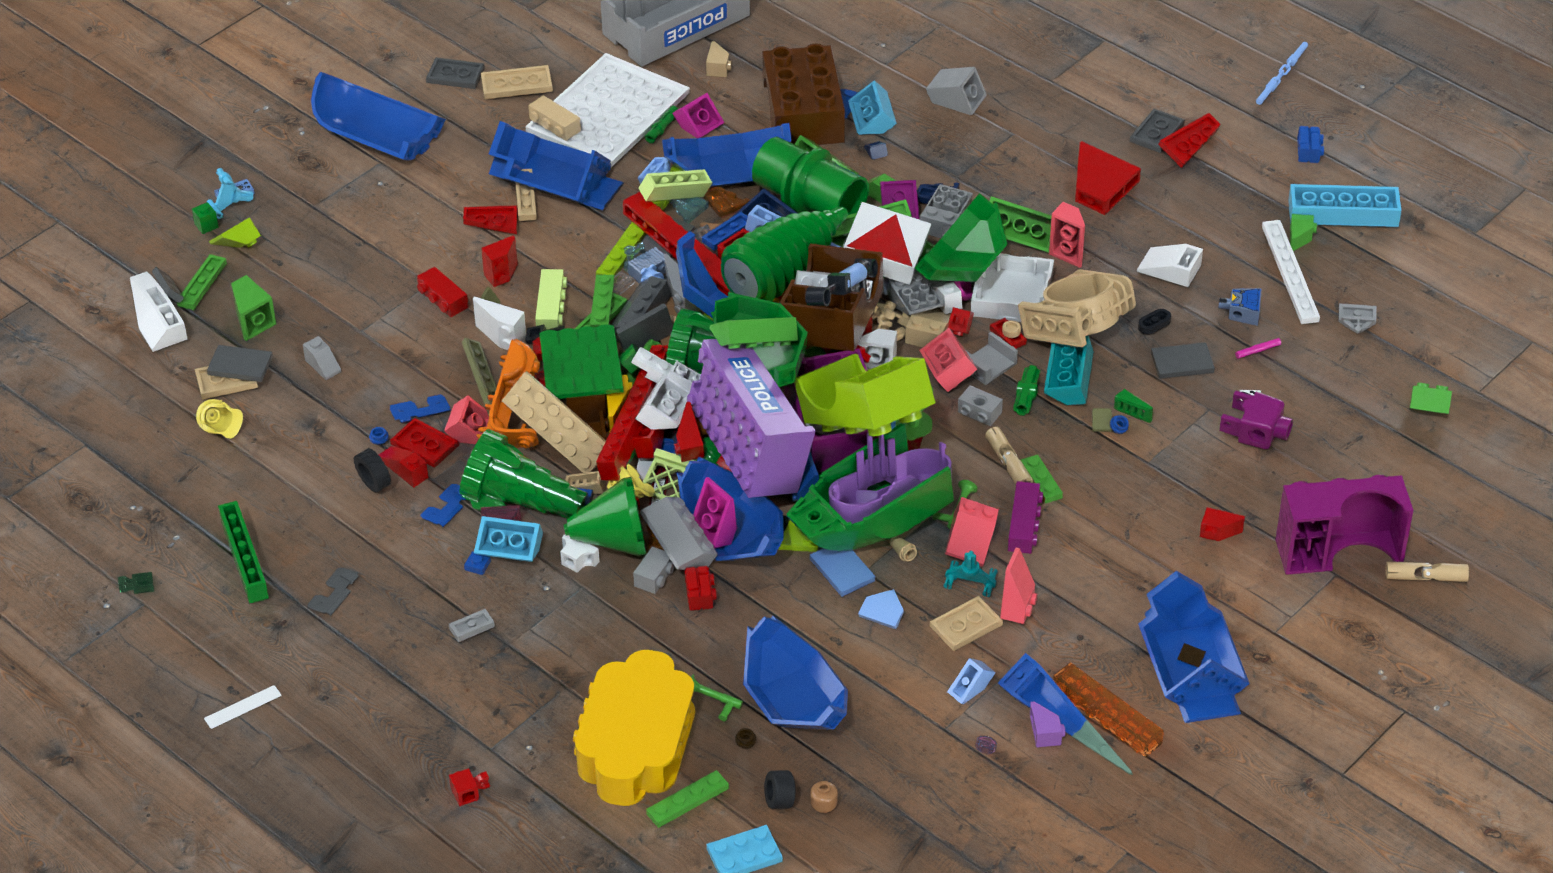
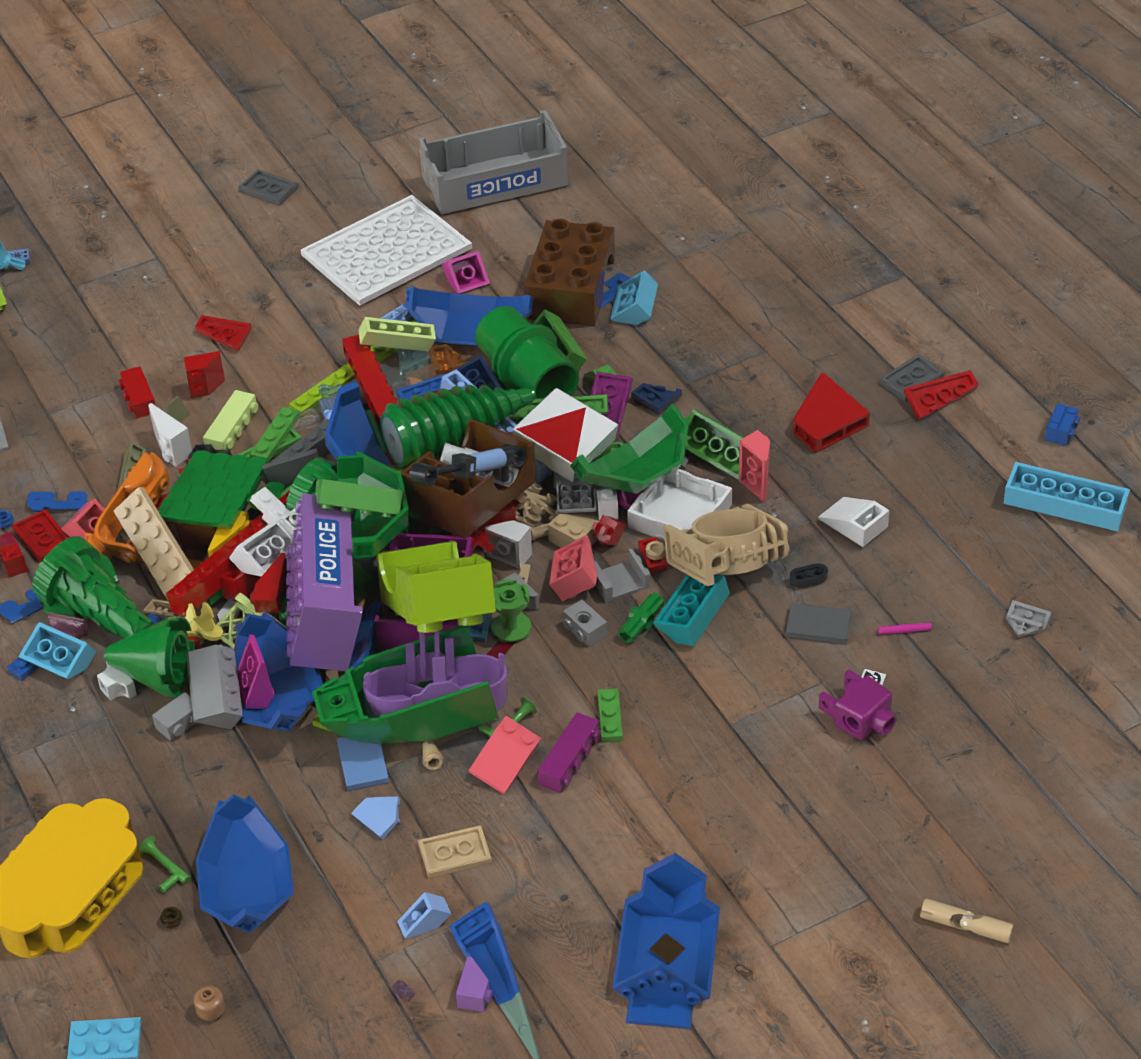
camera: 20 degrees right, 0 degrees up
(373, 118) = (165, 214): blue panel -> none
(516, 82) = (317, 206): tan plate -> none
(525, 201) = (266, 315): tan plate -> none
(554, 118) = (326, 247): tan brick -> none
(554, 167) = (300, 293): blue panel -> none
(659, 127) = (423, 276): green pin -> none
(687, 798) = (81, 967): bright green plate -> none
(699, 588) = (210, 746): red brick -> none
(718, 61) = (511, 223): tan slope -> none
(779, 789) = (170, 983): black tyre -> none
(876, 150) = (620, 340): dark blue slope -> none
(945, 208) = (648, 410): light grey slope -> none
(957, 89) = (728, 296): light grey slope -> none
(970, 571) = (480, 794): teal axle -> none
(1003, 448) = (586, 683): tan piece -> none
(1018, 590) = (513, 828): coral slope -> none
(1101, 419) = (702, 667): olive slope -> none
(1109, 710) = (548, 987): clear orange brick -> none
(1122, 421) = (717, 671): blue plate -> none
(1133, 406) = (739, 659): green slope -> none
(1221, 524) = (768, 811): red slope -> none
(1243, 305) = (909, 579): torso -> none
(1272, 85) = (1054, 354): light blue piece -> none
(1290, 272) = (977, 555): white plate -> none
(1301, 230) = (1009, 513): bright green slope -> none
(1335, 514) = (878, 834): magenta piece -> none
(1430, 399) = (1061, 727): bright green slope -> none

